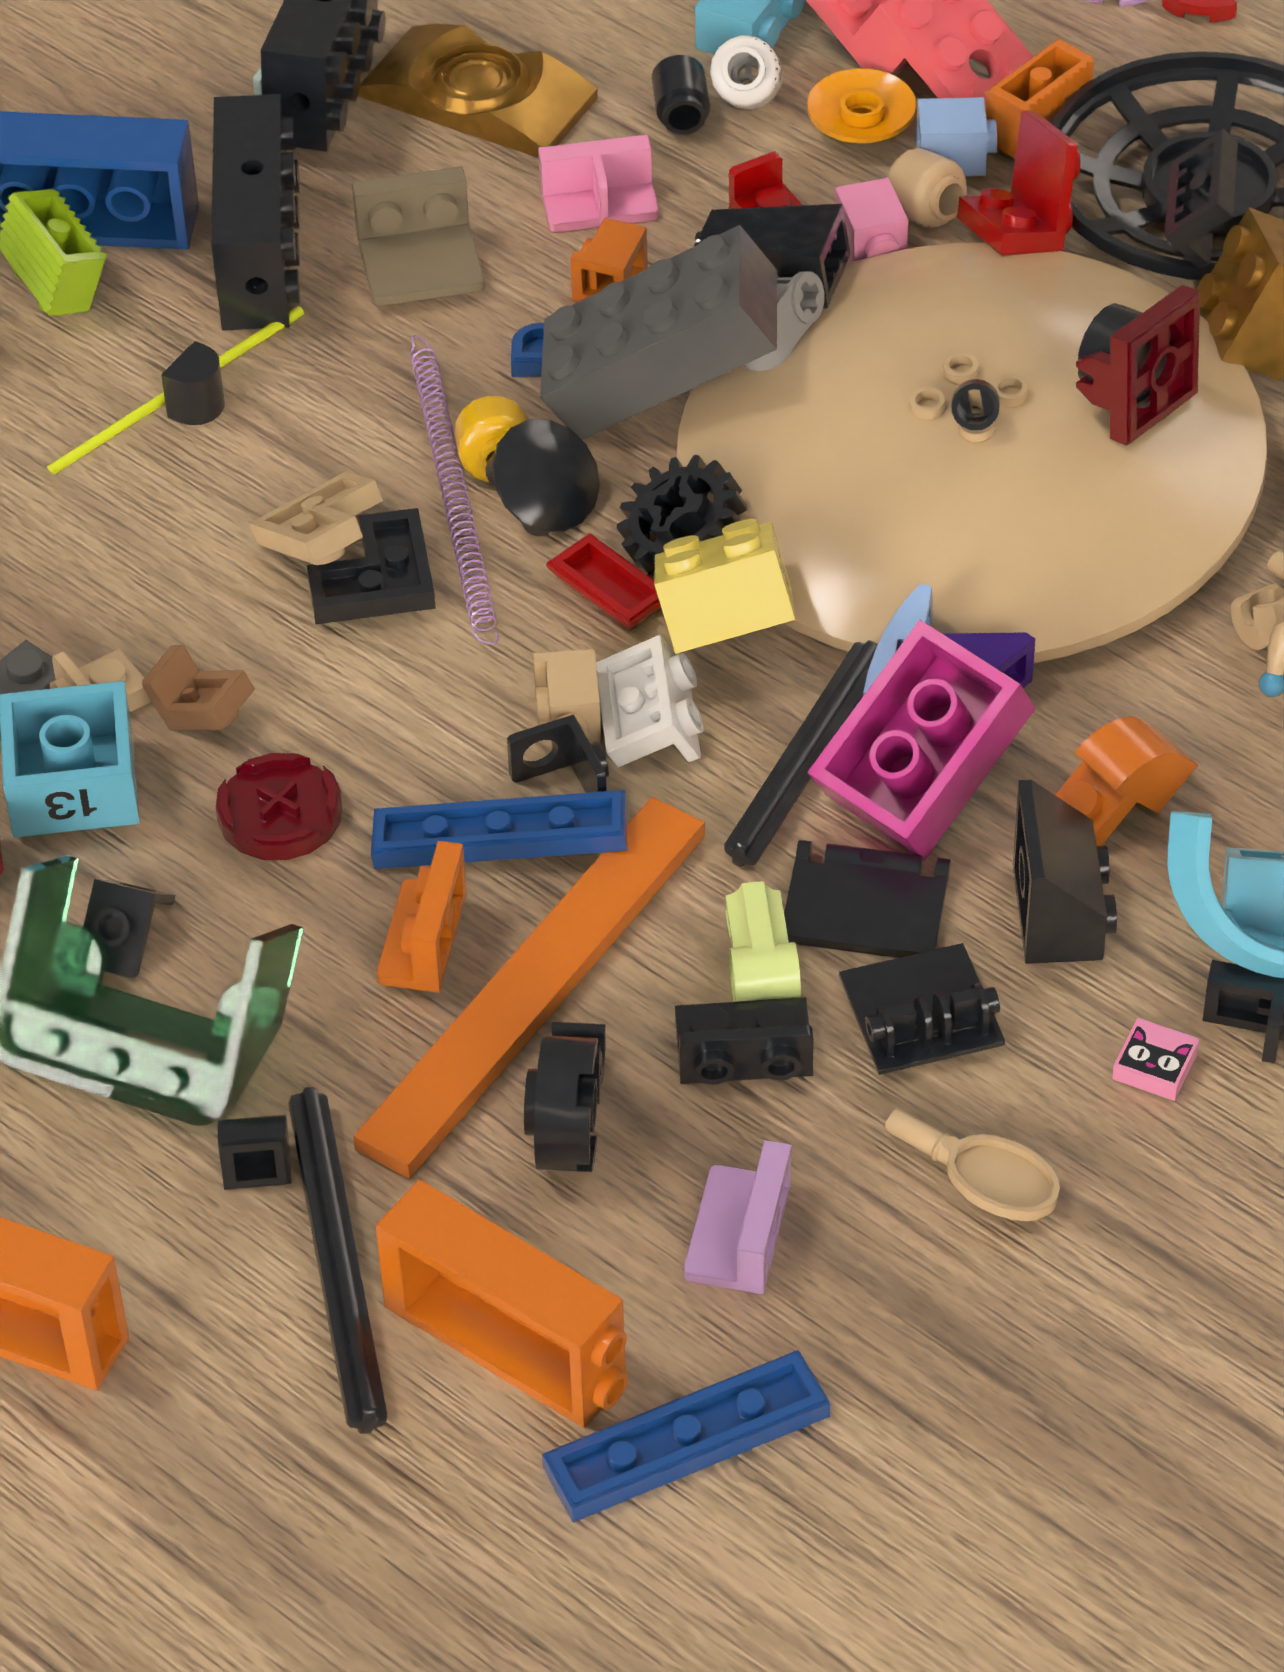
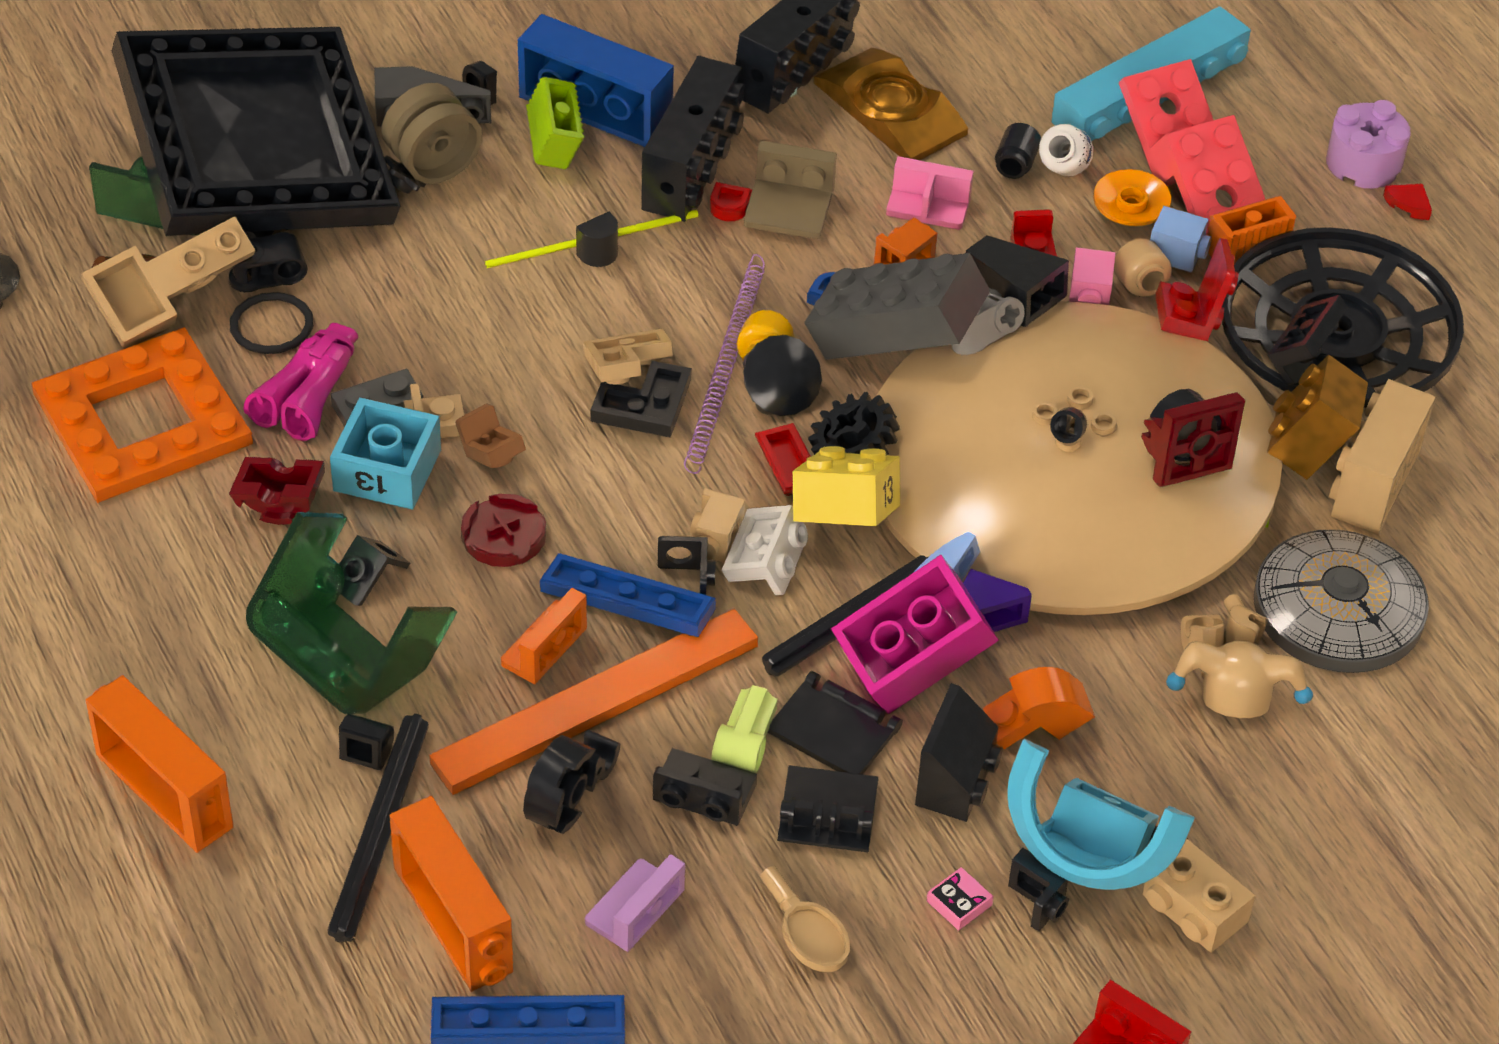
camera: 20 degrees right, 0 degrees up
(337, 281) = (729, 201): none -> red tile

